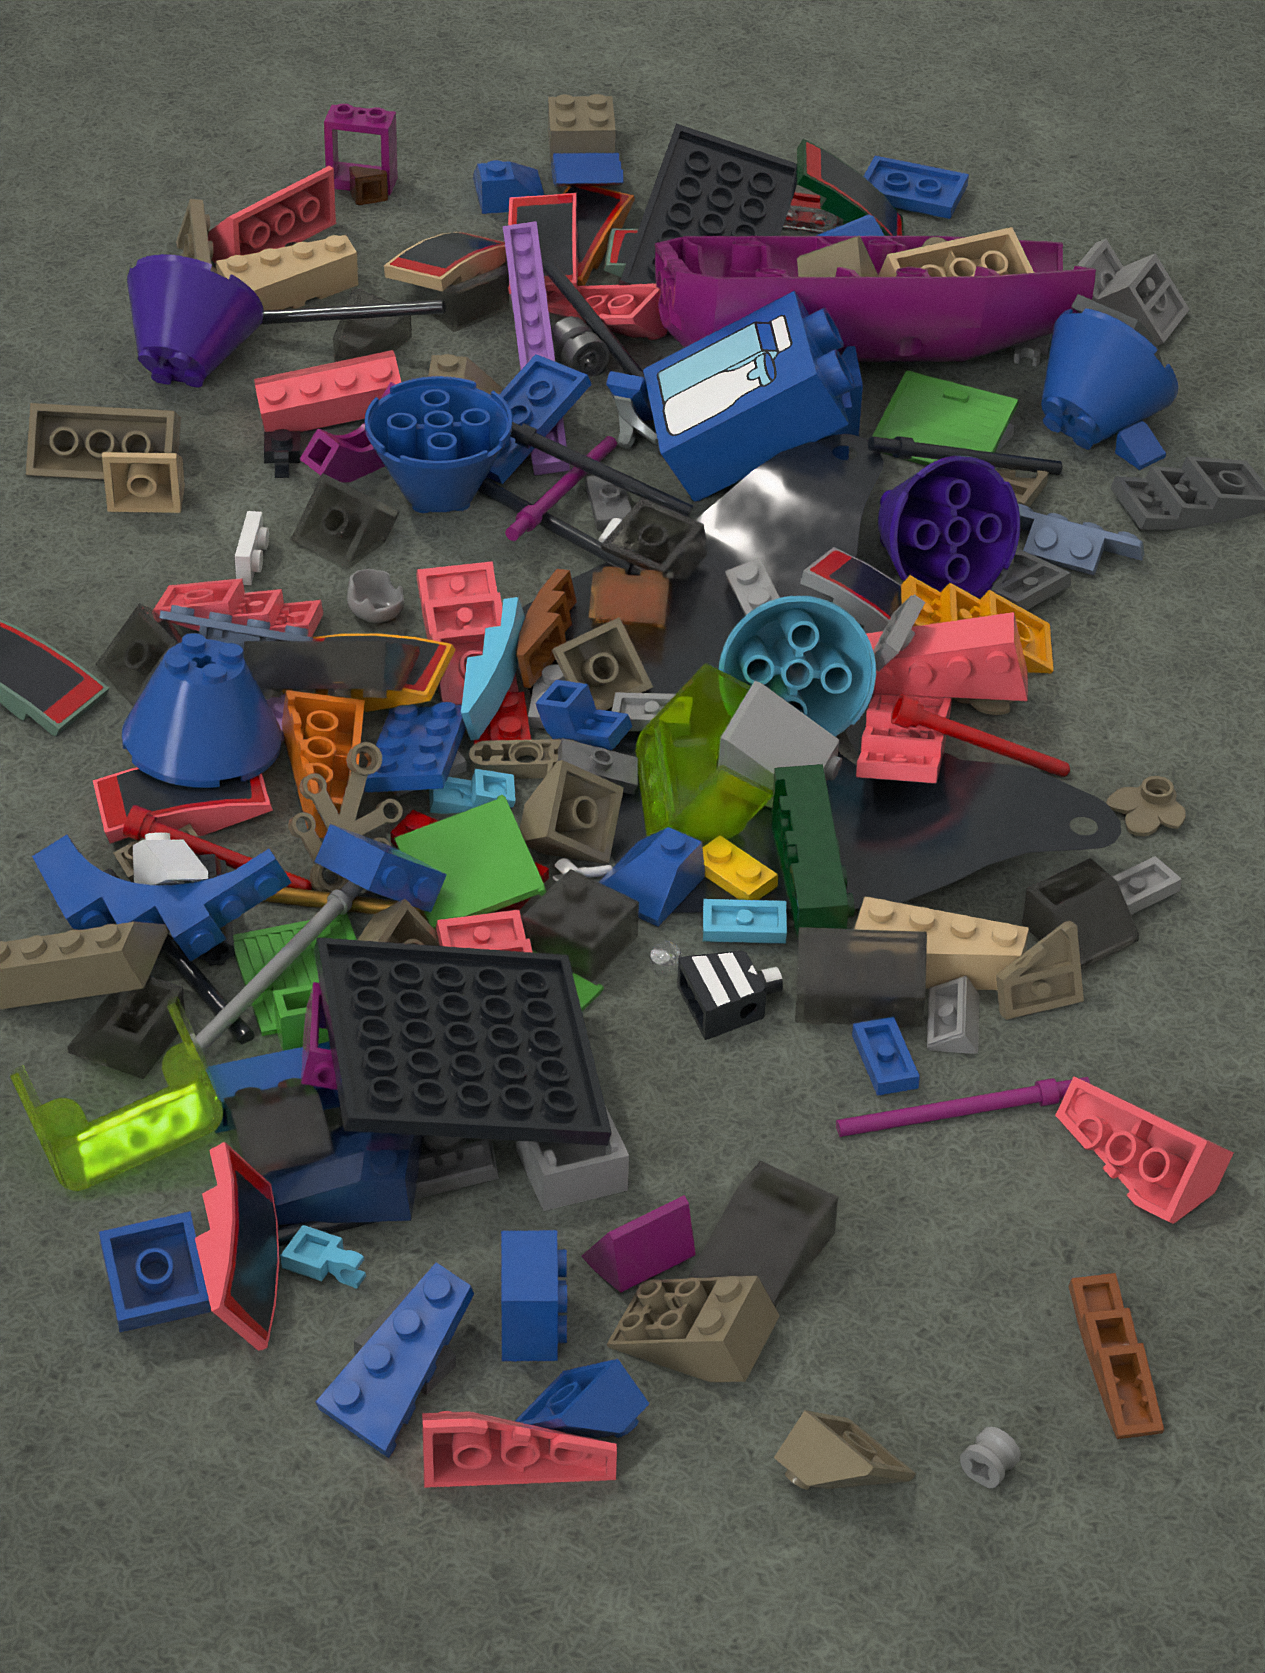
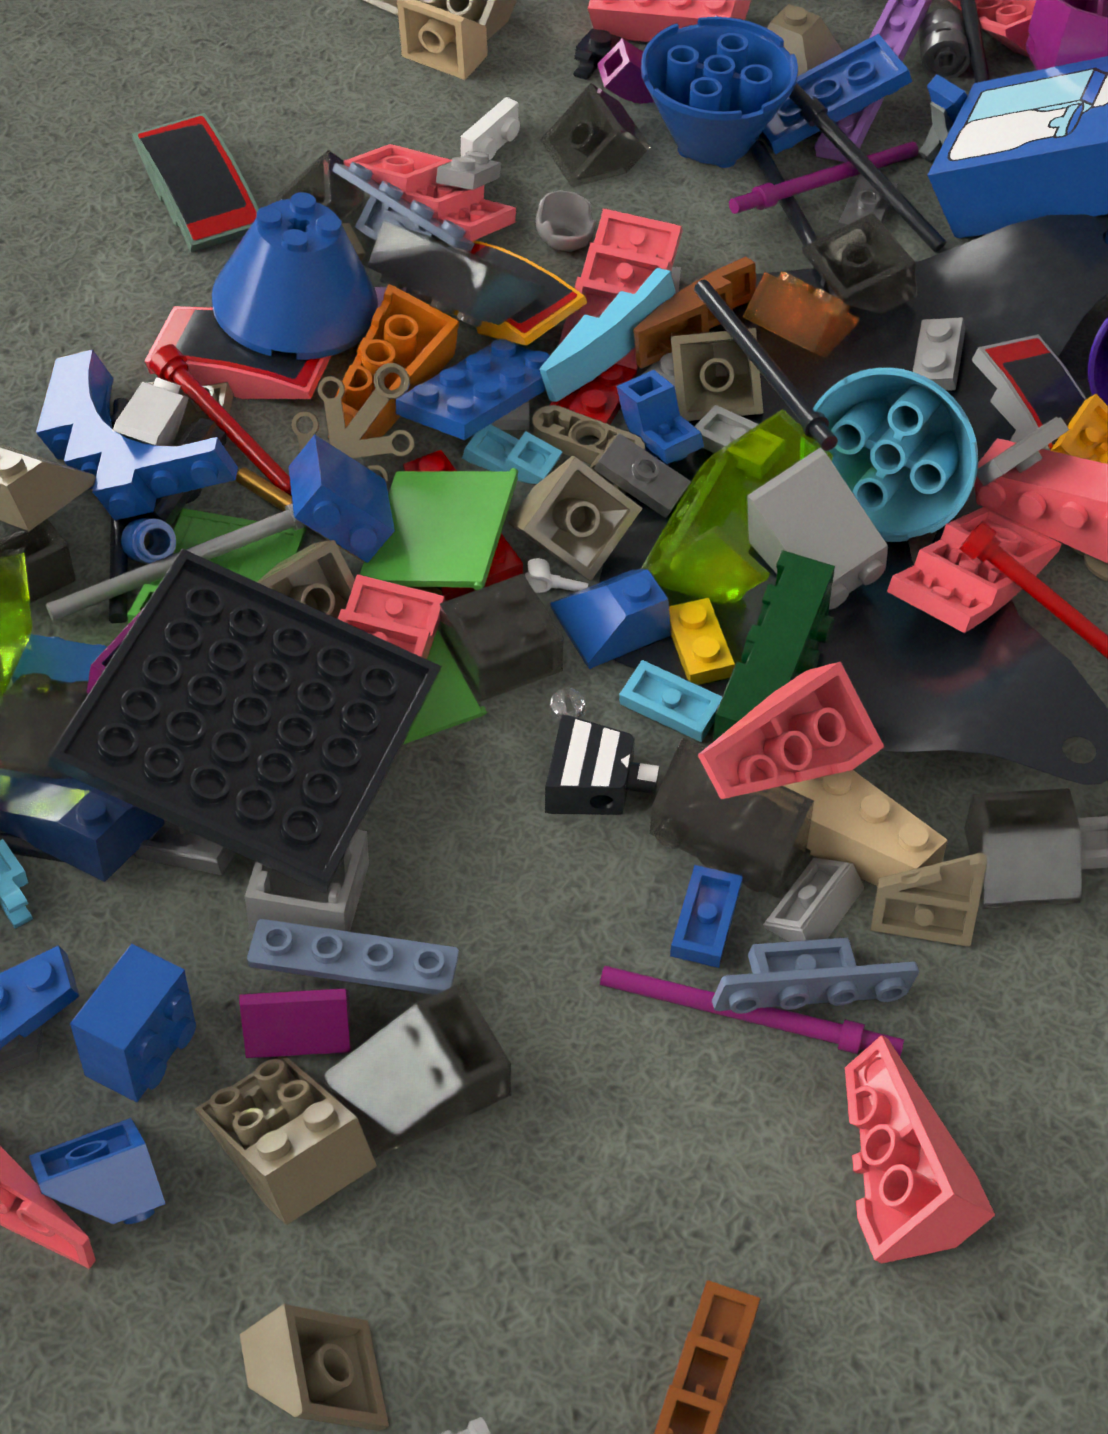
camera: 30 degrees right, 10 degrees up
(234, 965) = (161, 540): none -> blue brick
(263, 582) = (469, 171): none -> light grey plate
(656, 1184) = (352, 957): none -> sand blue bracket
(733, 666) = (813, 423): none -> black bar
(883, 888) = (794, 735): none -> coral wedge
(994, 1059) = (810, 974): none -> sand blue bracket

